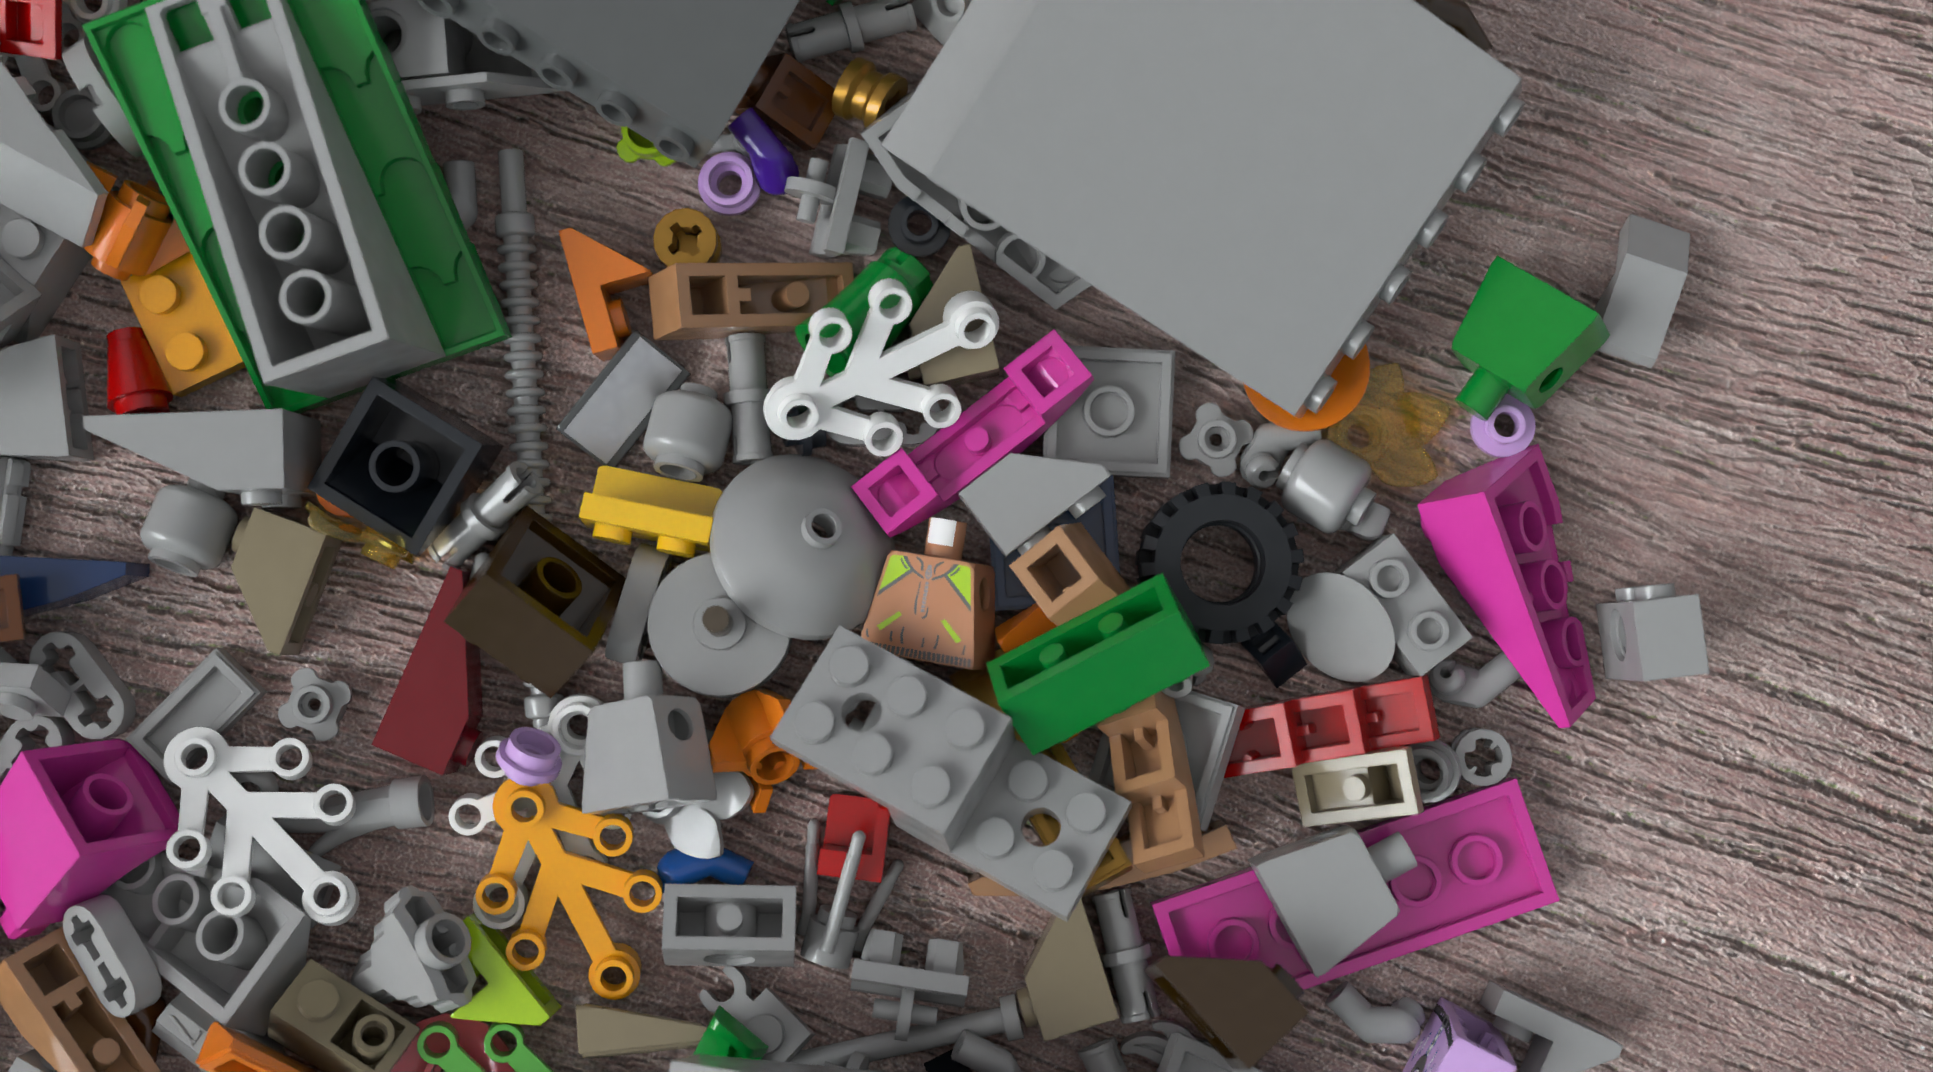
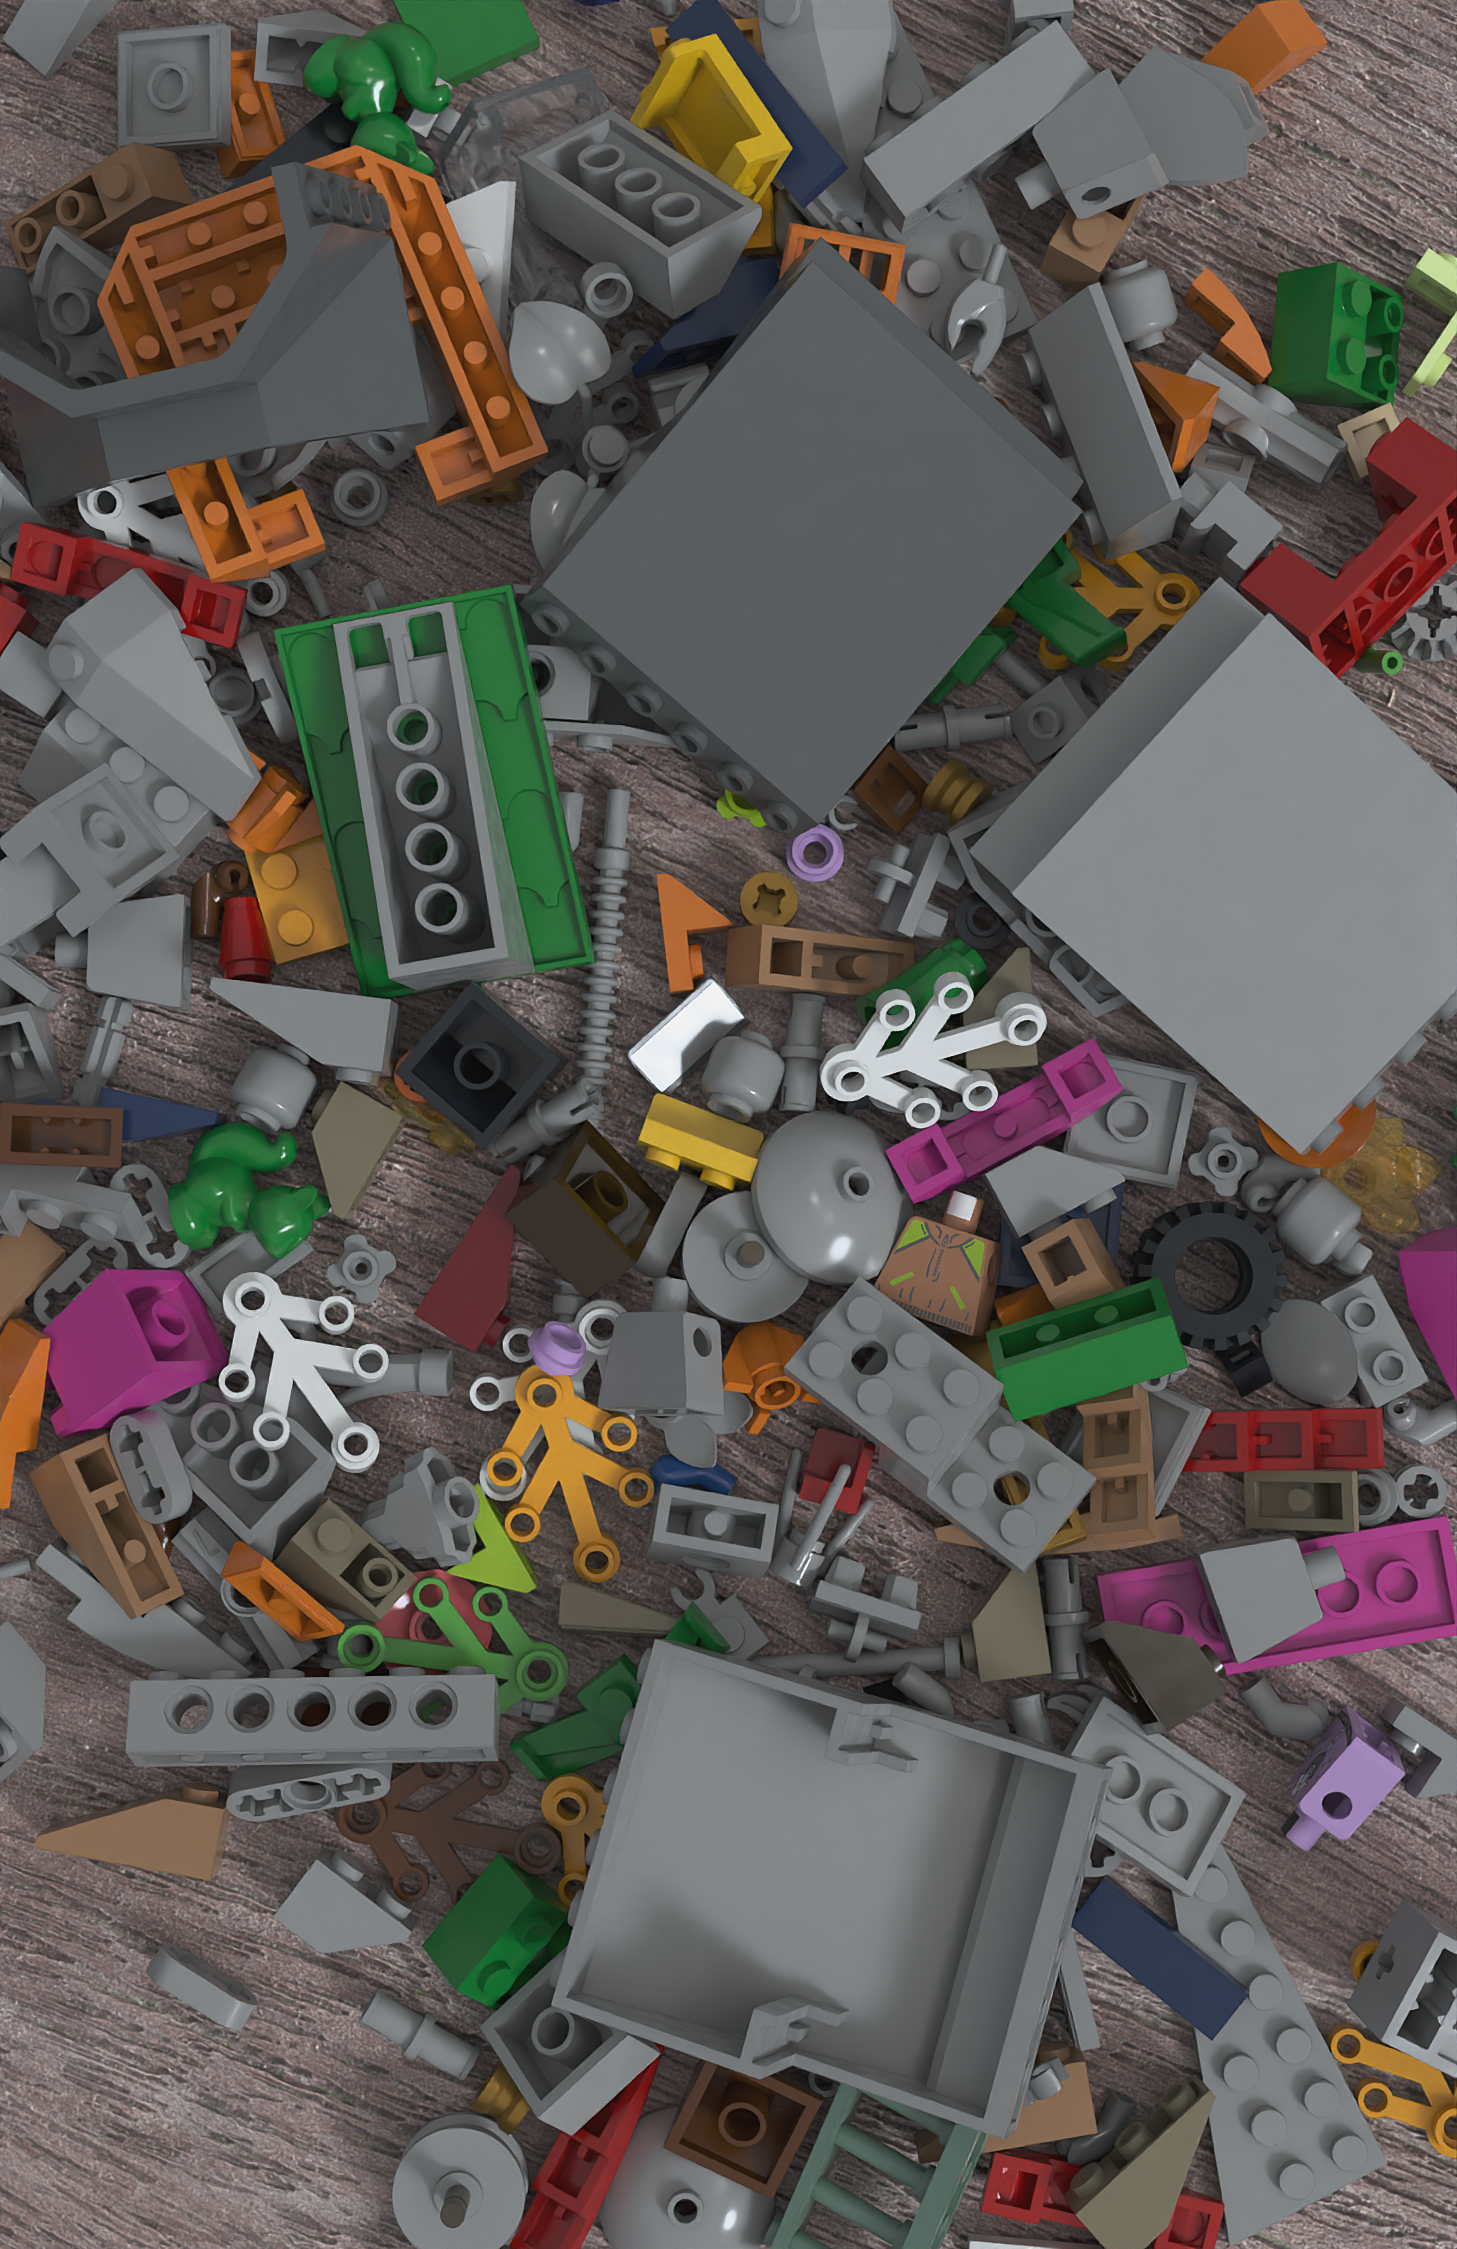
camera: 10 degrees right, 0 degrees up
(89, 332) = (207, 897): none -> reddish brown arm
(151, 647) = (224, 1194): none -> green animal
(768, 155) = (857, 837): dark purple arm -> none

